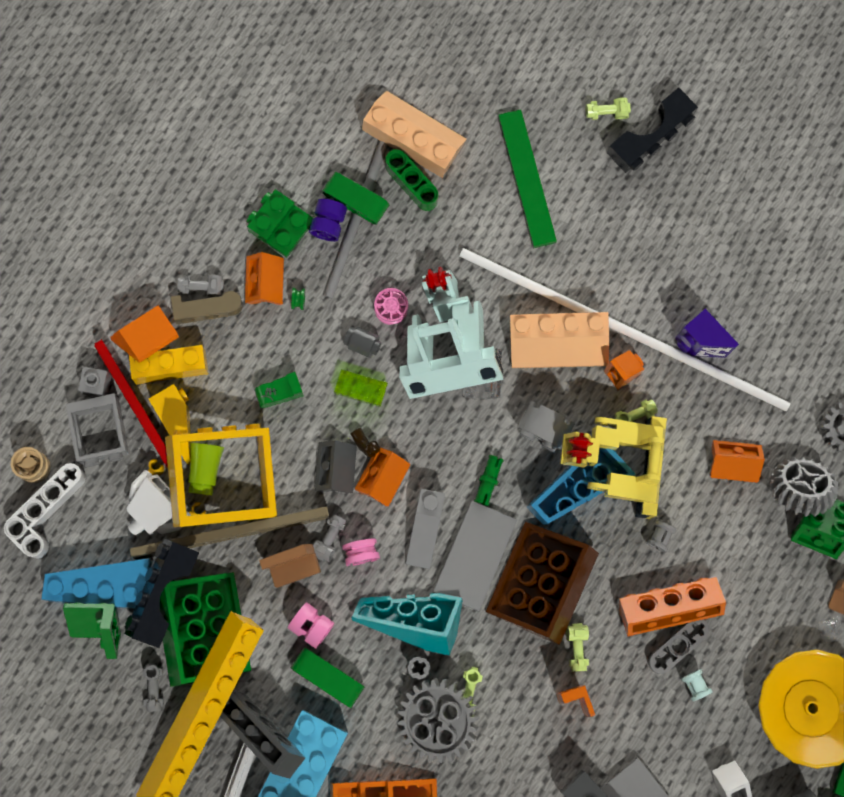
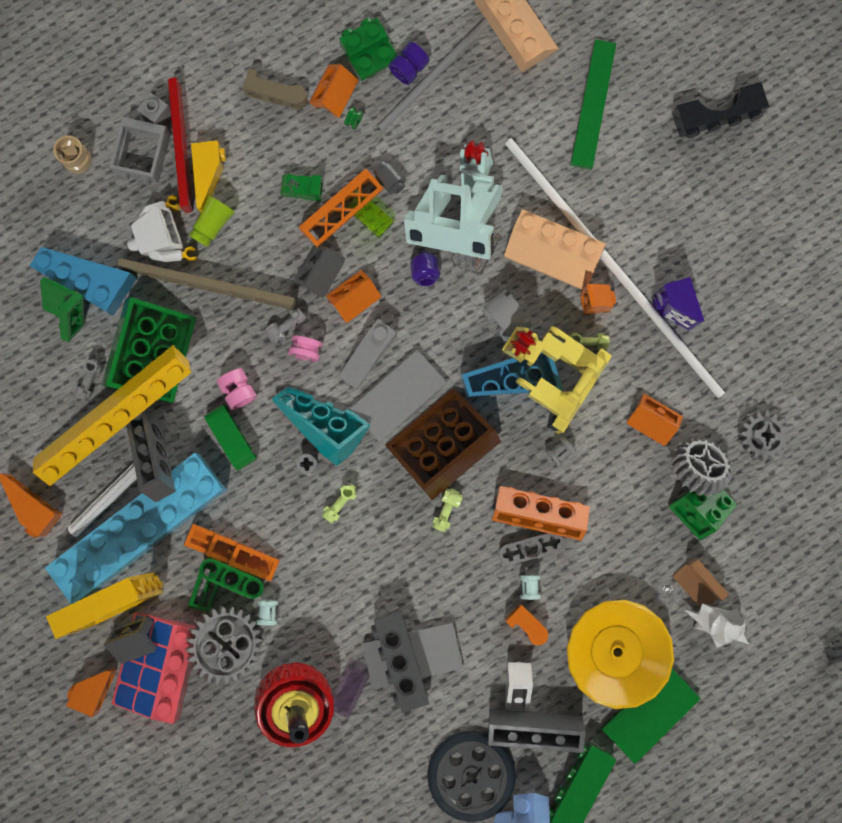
camera: 30 degrees right, 5 degrees up
(48, 507) = (71, 196): white beam -> none
(145, 335) = (213, 88): orange slope -> none
(147, 622) = (144, 284): black arch -> none
(170, 365) = (221, 123): yellow brick -> none
(176, 480) = (241, 199): yellow window -> none
(213, 286) = (289, 77): light grey bar -> none
(292, 565) = (244, 332): medium nougat panel -> none
(318, 397) = (336, 202): none -> orange fence
(356, 198) = (440, 55): green beam -> none
(363, 444) = (350, 262): dark brown arm -> none
(391, 306) = (427, 159): bright pink wheel -> none
(407, 170) = (495, 52): green beam -> none
(441, 416) = (425, 268): none -> dark purple head
(459, 725) = (302, 514): light grey gear -> none
(488, 480) = (439, 339): green pin -> none
(575, 693) = (423, 545): orange panel -> none
(620, 108) = (702, 79): yellowish green bar -> none
(721, 725) = (534, 629): none -> orange leg

